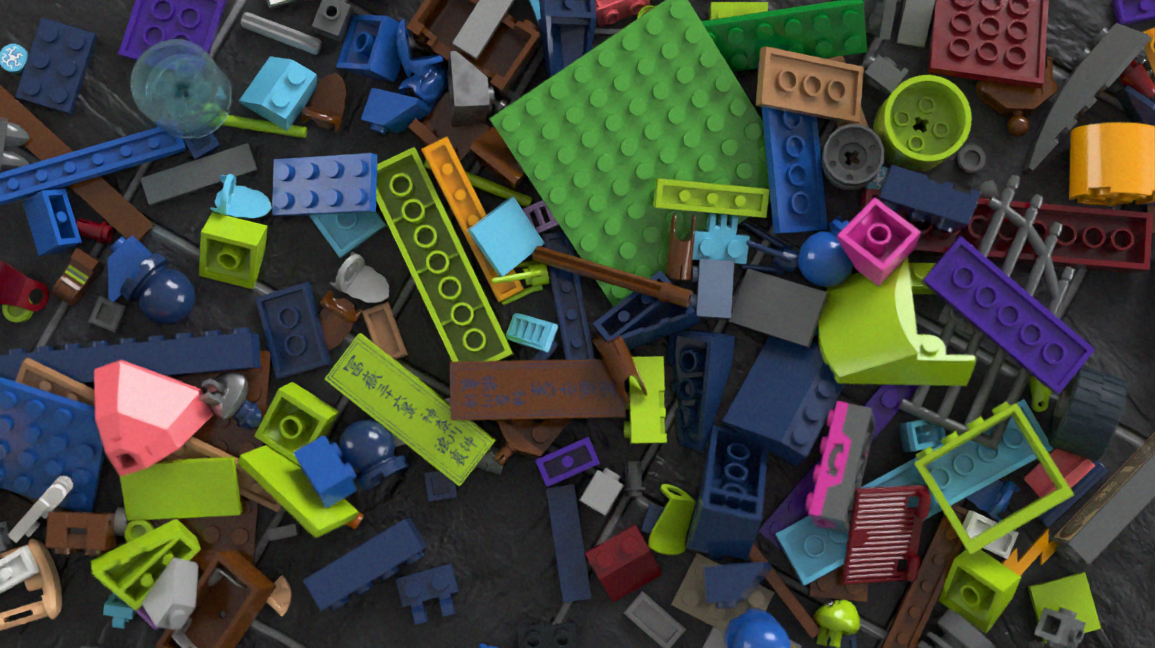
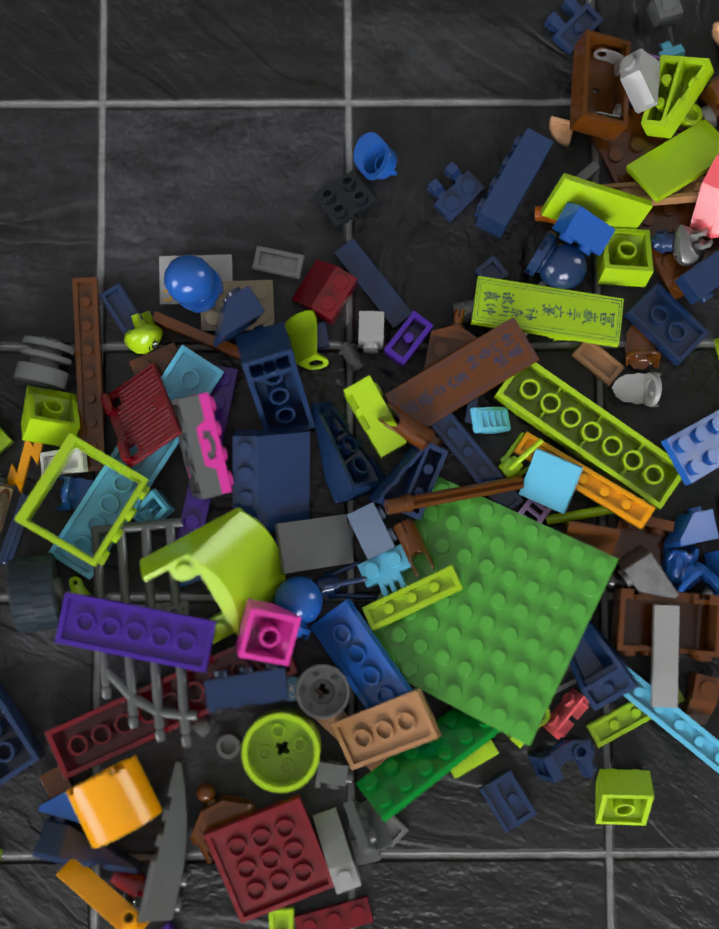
camera: 155 degrees right, 0 degrees up
(348, 230) = (669, 420): medium azure tile -> none
(1070, 466) = (30, 543): coral panel -> none

